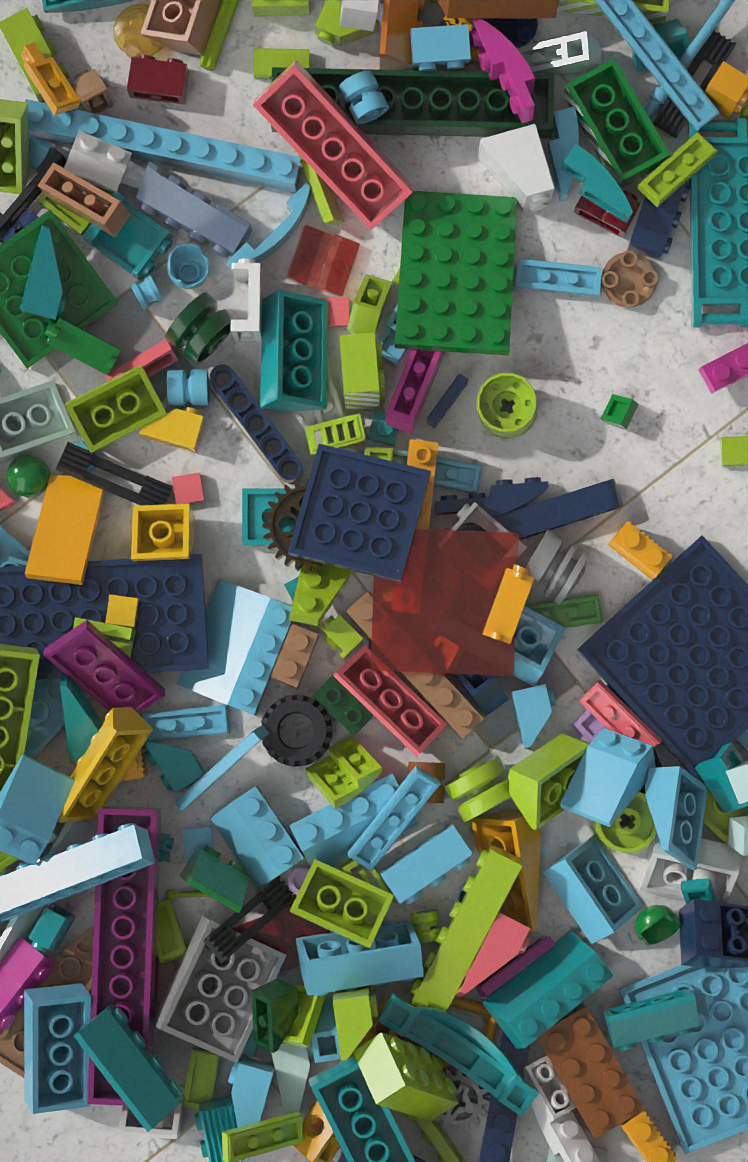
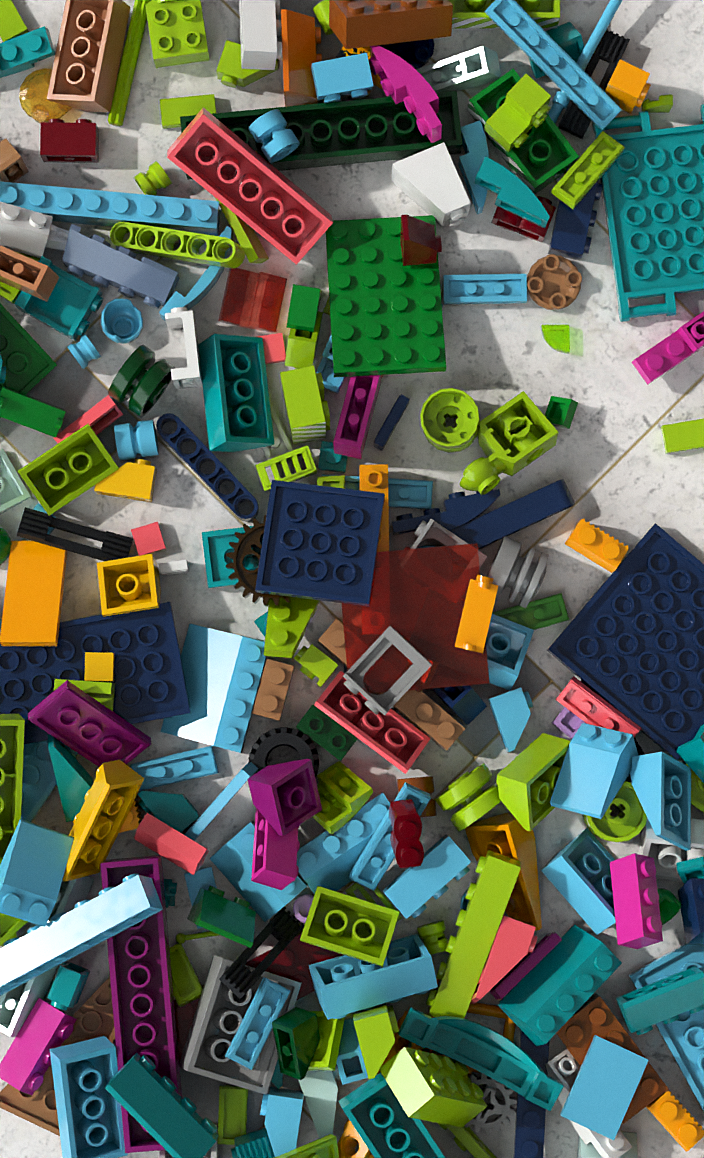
camera: 15 degrees left, 0 degrees up
(172, 798) = (170, 844): none -> coral piece
(210, 520) = (174, 567): none -> white tile
(236, 990) = (257, 1023): none -> medium azure tile
(238, 128) = (154, 179): none -> lime wheel
(264, 201) = (188, 249): none -> lime beam
(278, 809) = (274, 855): none -> dark pink brick
(294, 762) = (286, 794): none -> magenta slope
(373, 274) = (303, 308): none -> green slope
(380, 648) = (384, 702): none -> light grey panel
(410, 817) = (406, 833): none -> dark red brick
(497, 221) = (418, 241): none -> dark red slope
(565, 434) = (510, 440): none -> lime brick
(579, 1099) = (604, 1087): none -> medium azure tile
(619, 99) = (523, 108): none -> lime brick
(625, 335) = (557, 337): none -> clear neon green tile
(635, 915) = (636, 901): none -> dark pink brick

